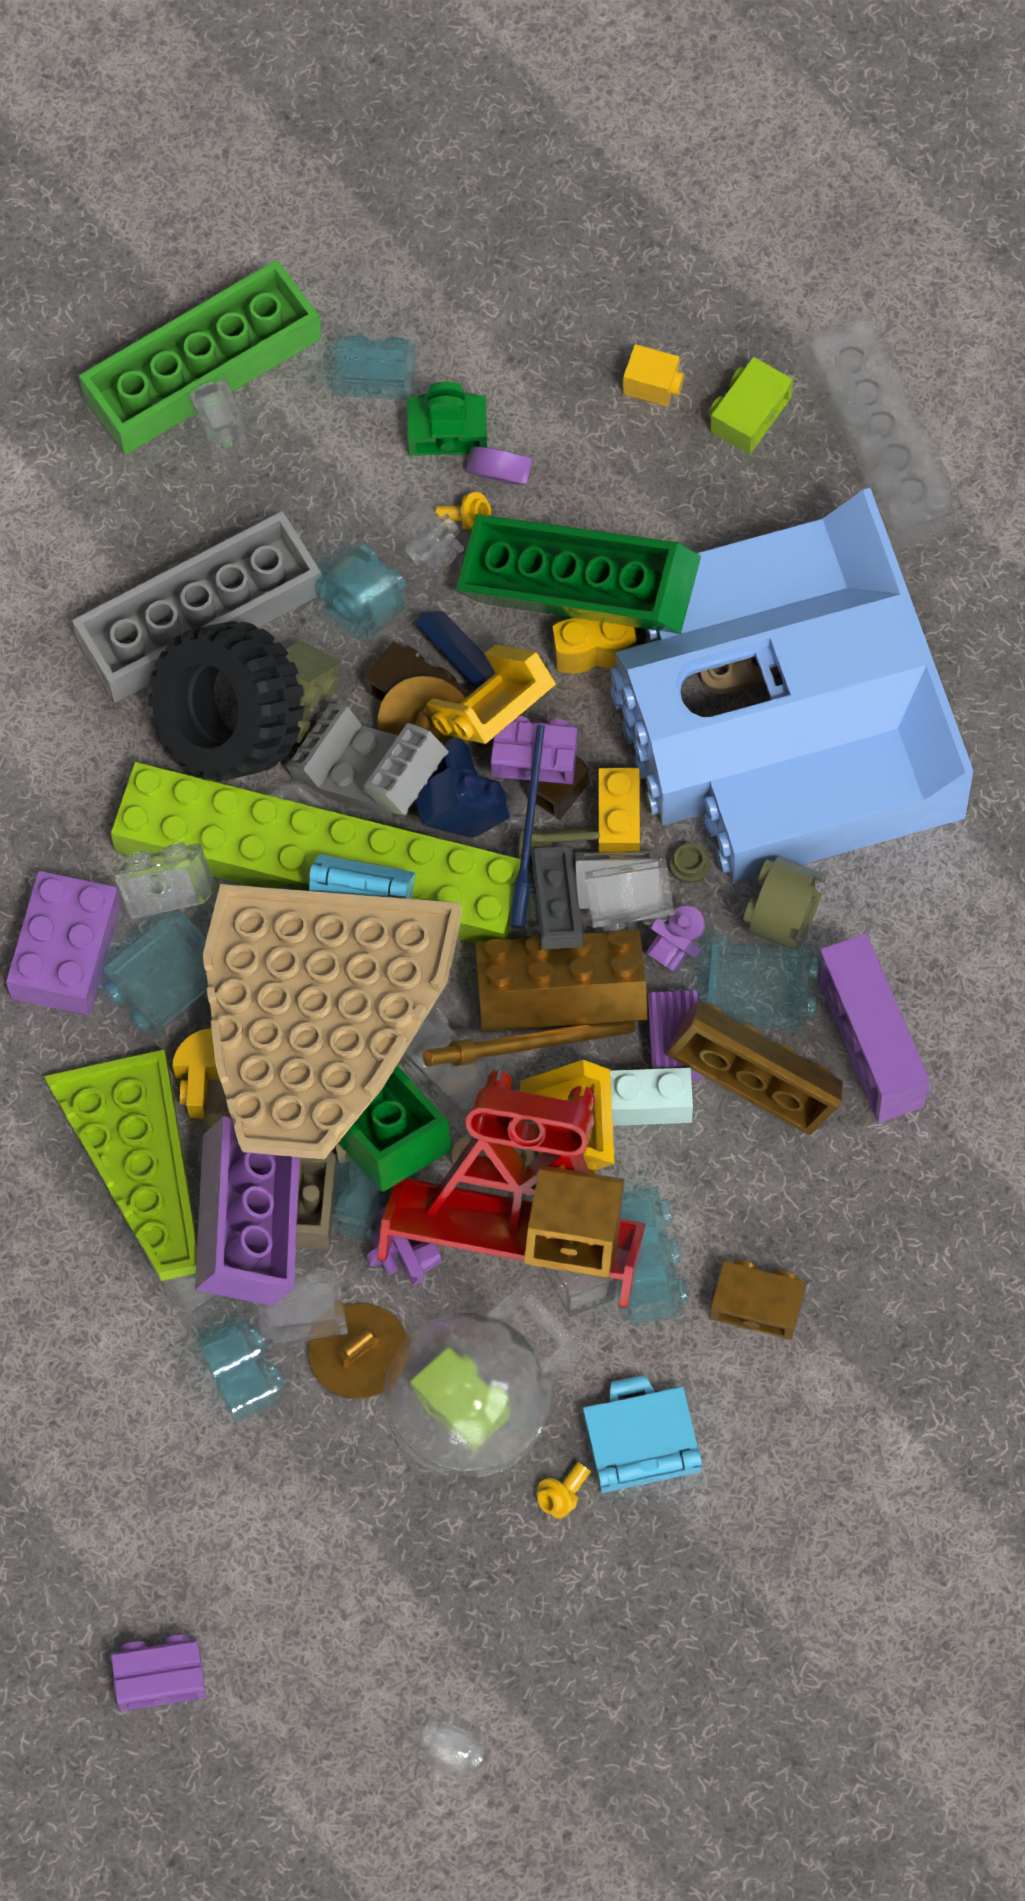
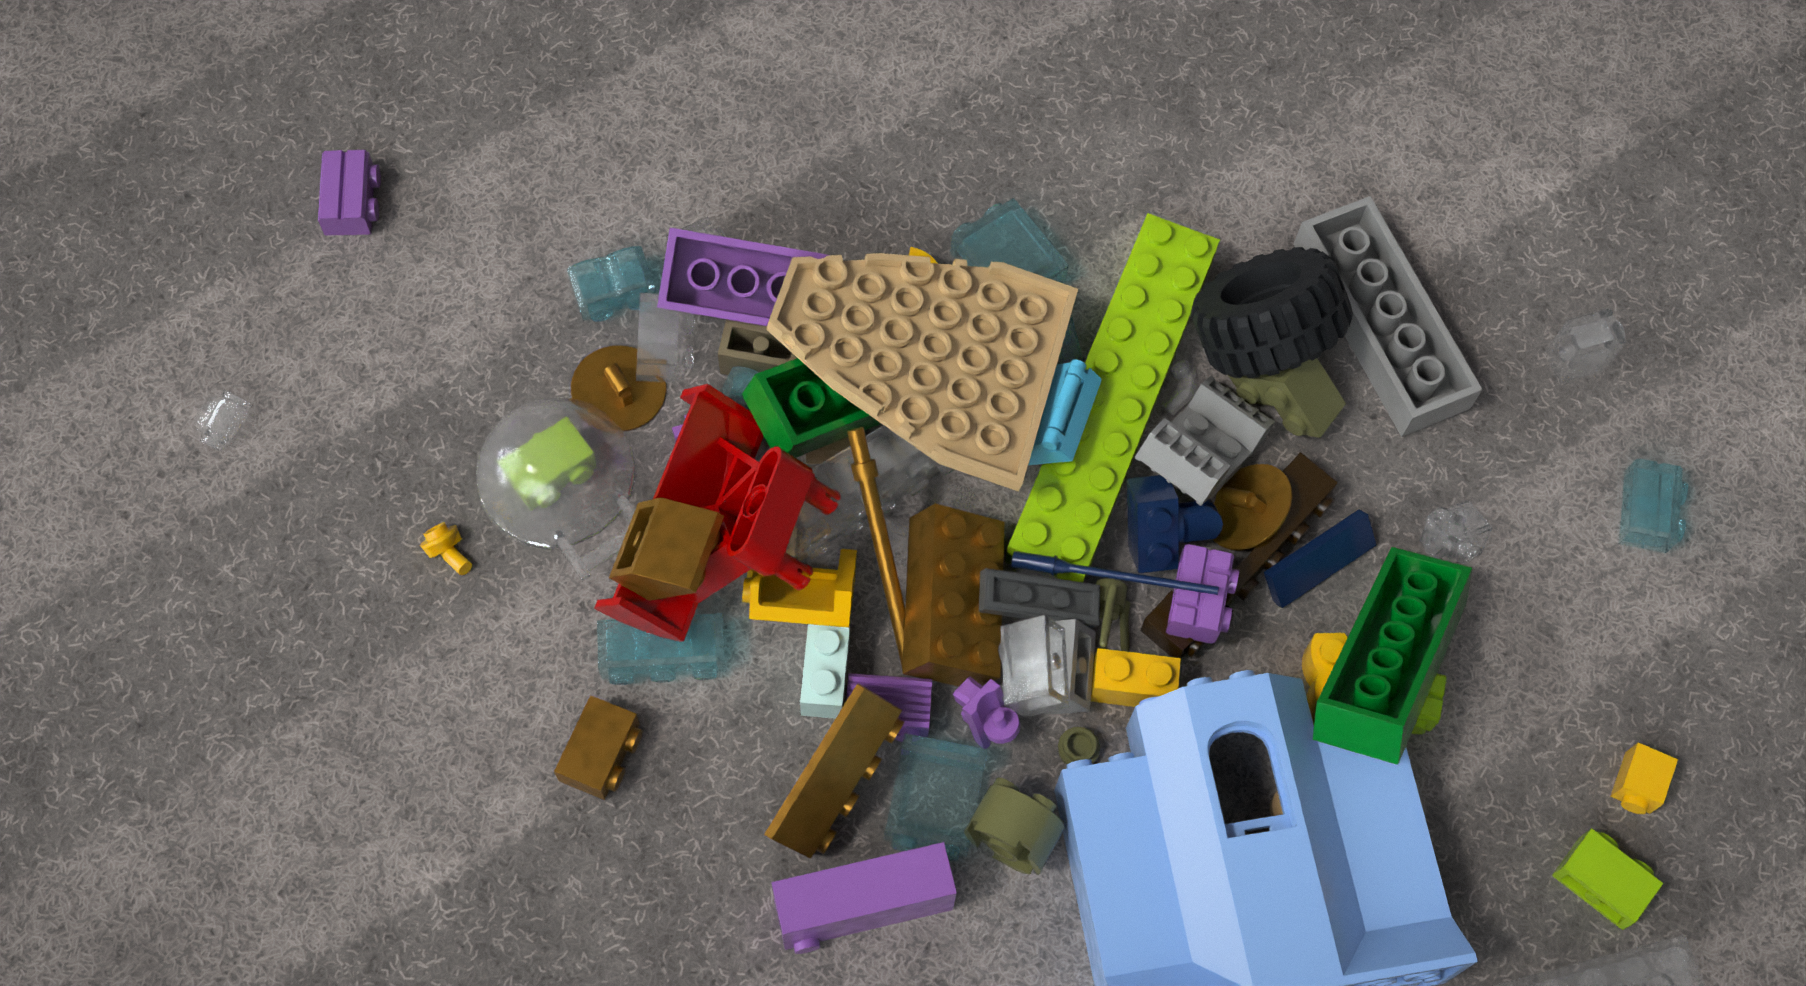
camera: 90 degrees right, 0 degrees up
(64, 943) = (1047, 174): medium lavender brick -> none
(134, 1140) = (837, 212): lime wing -> none
(165, 880) = (1096, 256): clear brick -> none
(223, 338) = (1669, 345): bright green brick -> none
(362, 593) = (1393, 461): clear light blue brick -> none
(446, 421) = (1587, 566): green brick -> none
(472, 504) = (1487, 579): yellow plate -> none
(499, 465) = (1535, 603): medium lavender hat -> none
(514, 687) = (1251, 554): yellow panel -> none
(641, 1436) = (482, 621): medium azure piece -> none

